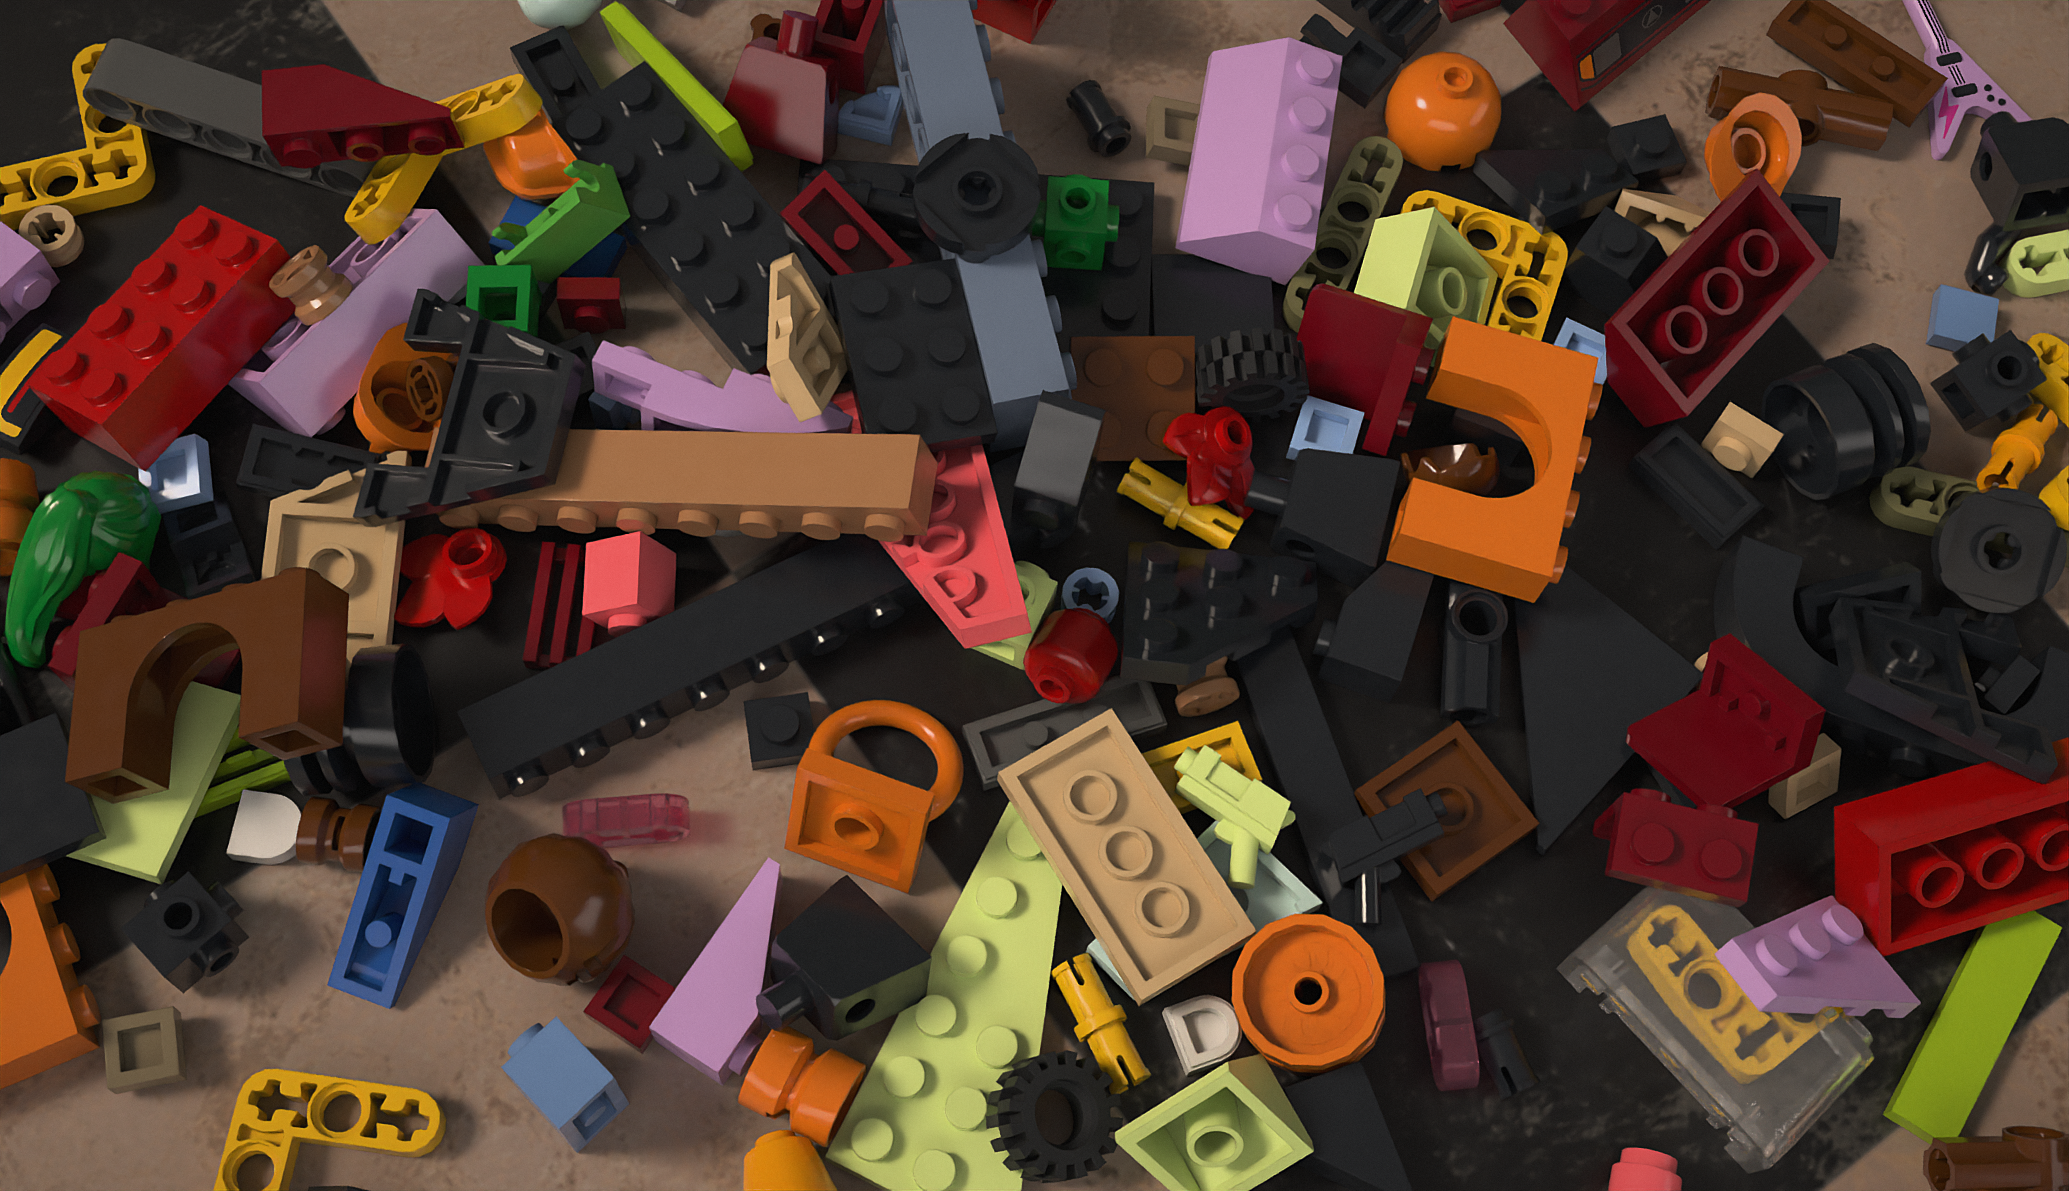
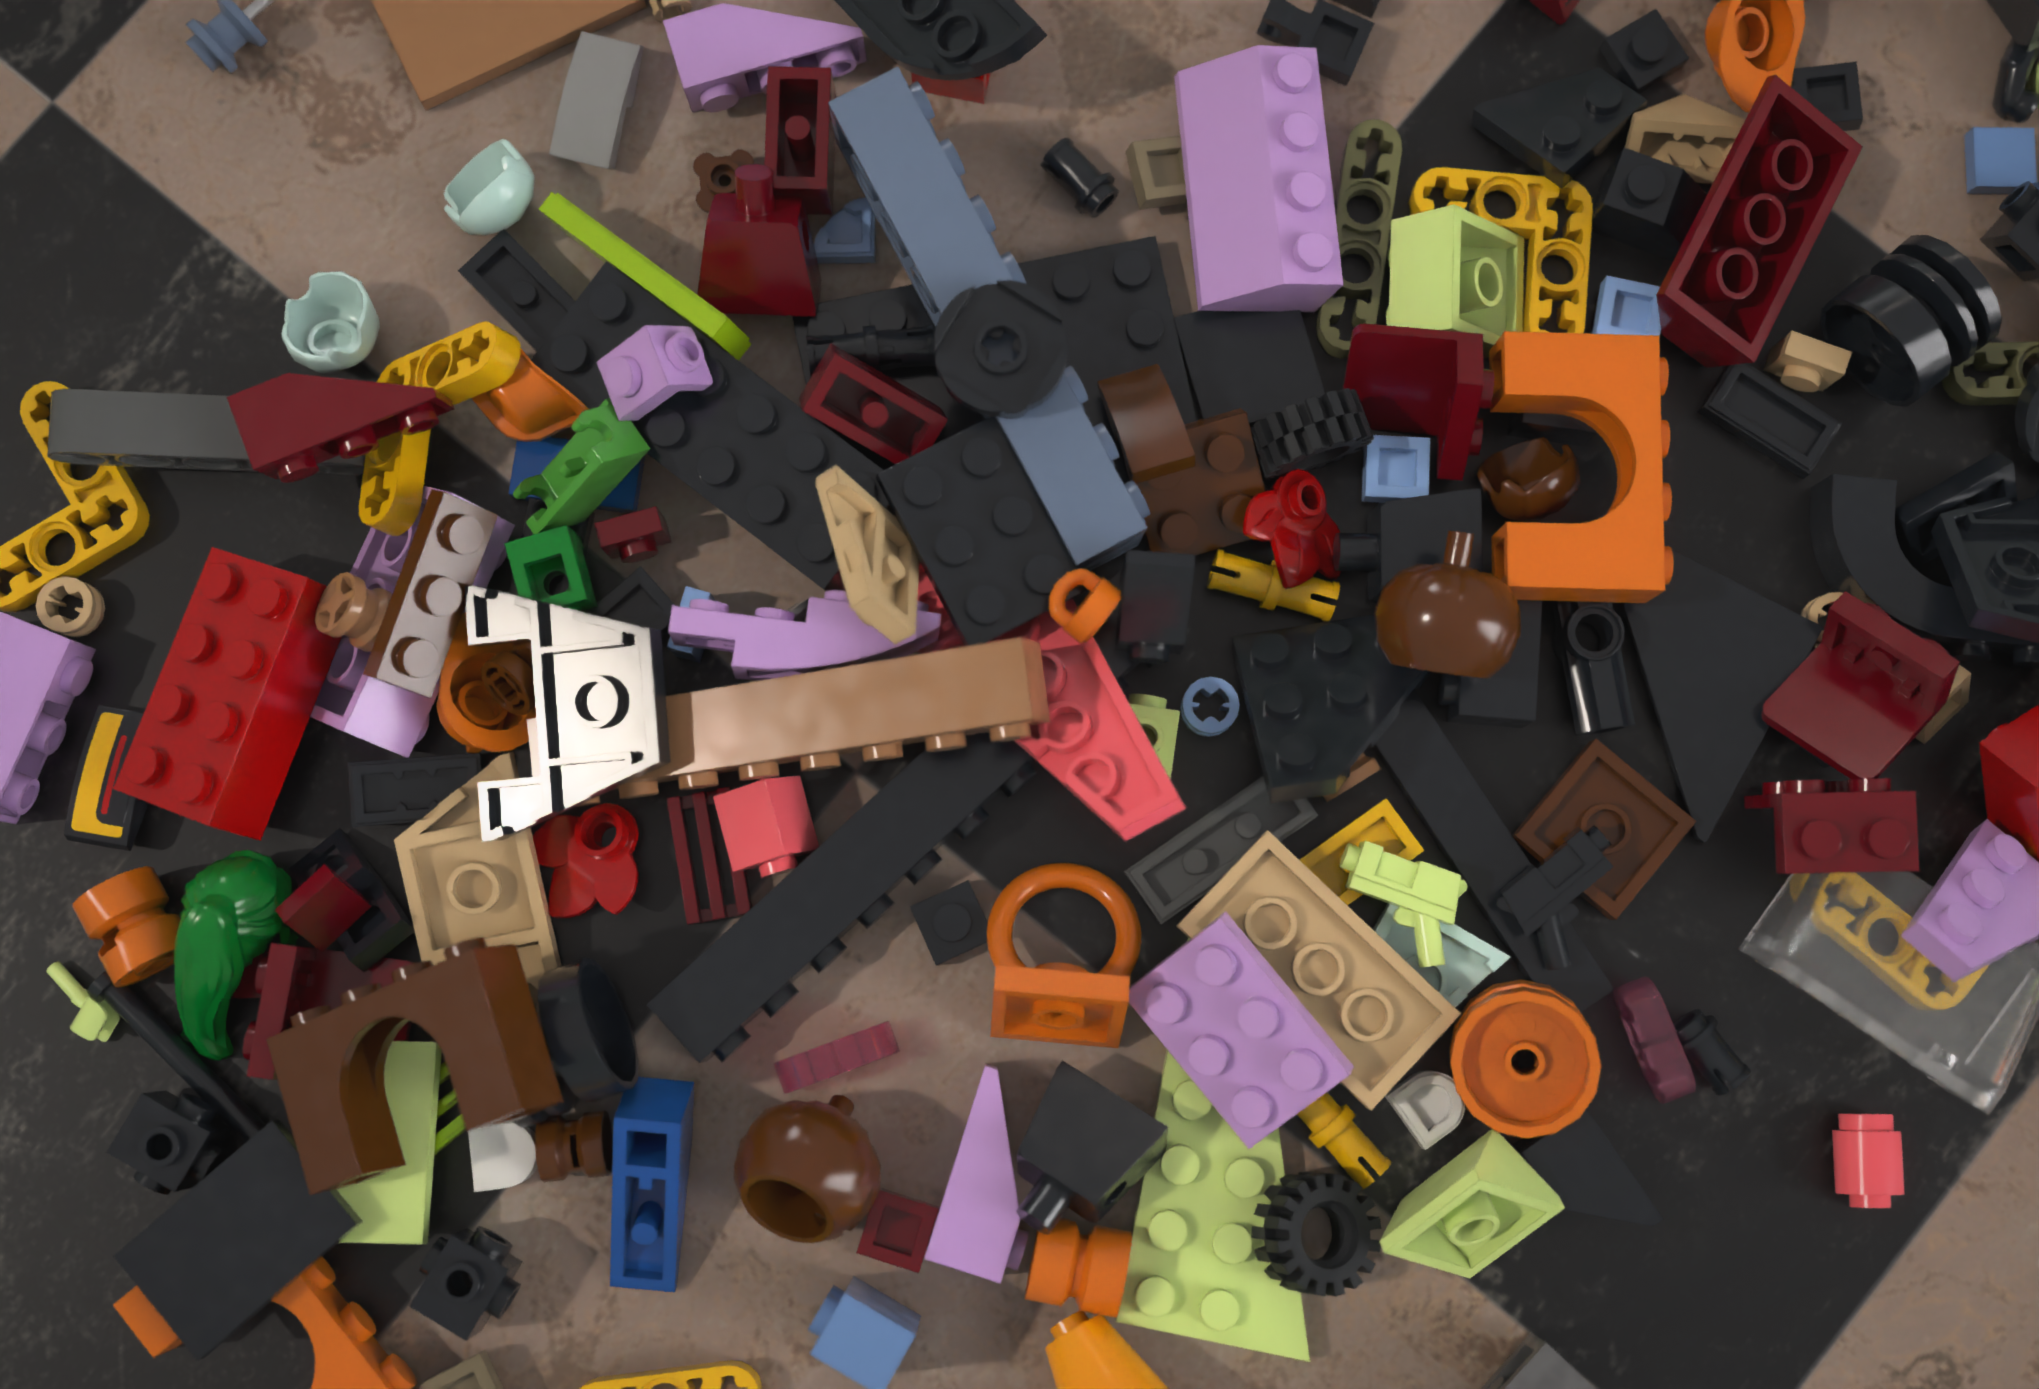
camera: 10 degrees left, 15 degrees up
(180, 475) = (294, 830): light blue plate -> none
(180, 542) = (323, 908): none -> dark red tile
(383, 287) = (430, 593): none -> plate
(386, 54) = (331, 323): none -> light aqua hair
(653, 143) = (653, 368): none -> lavender bracket
(993, 446) = (1091, 611): none -> orange tile
(1029, 887) = (1238, 1030): none -> lavender plate
(1071, 656) = (1213, 777): red head -> none
(1076, 222) = (1101, 335): green brick -> none
(1098, 320) = (1146, 423): none -> reddish brown slope
(1338, 548) = (1448, 616): none -> reddish brown piece
(1443, 111) = (1427, 70): orange cylinder -> none

